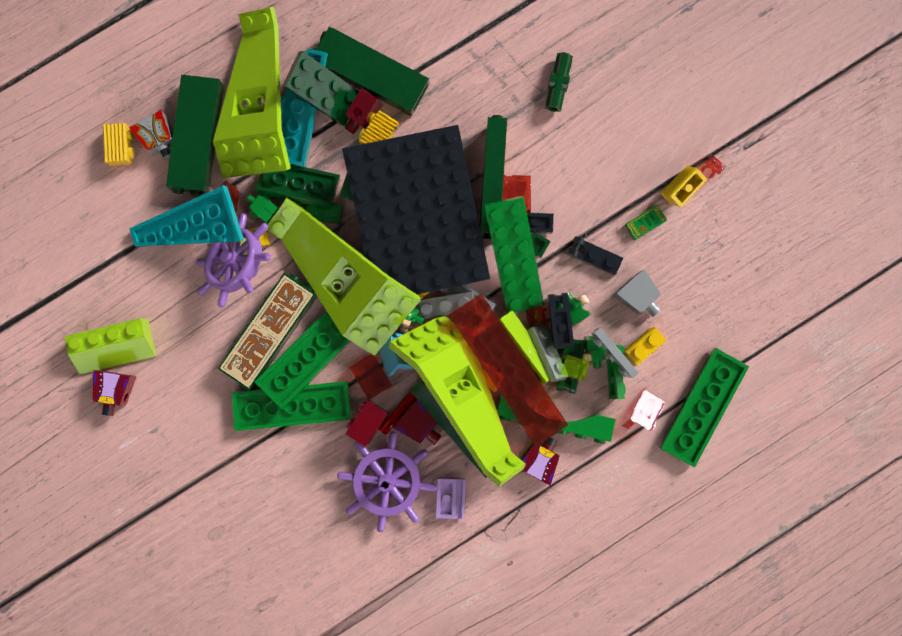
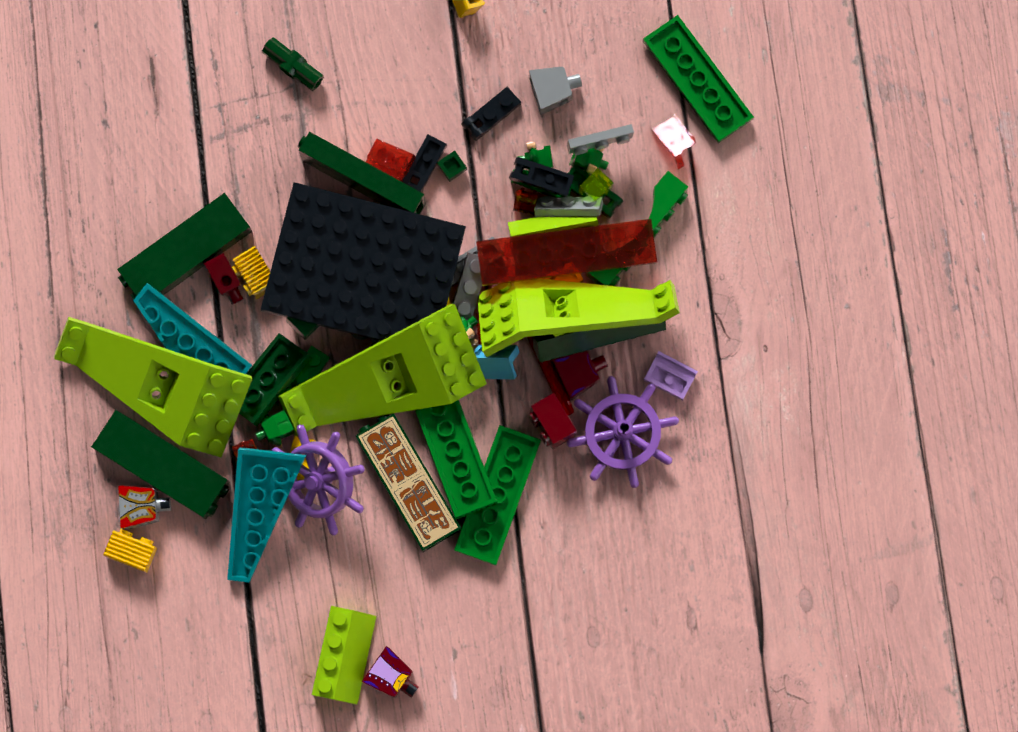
camera: 60 degrees left, 5 degrees down
(320, 88) = (183, 305): dark green plate -> none
(370, 376) = (506, 399): clear red plate -> none
(514, 254) = (453, 191): green plate -> none
(541, 461) = (676, 265): torso -> none
(615, 379) = (628, 153): green plate -> none
(644, 346) = (607, 107): yellow brick -> none
(645, 222) = (481, 46): green tile -> none

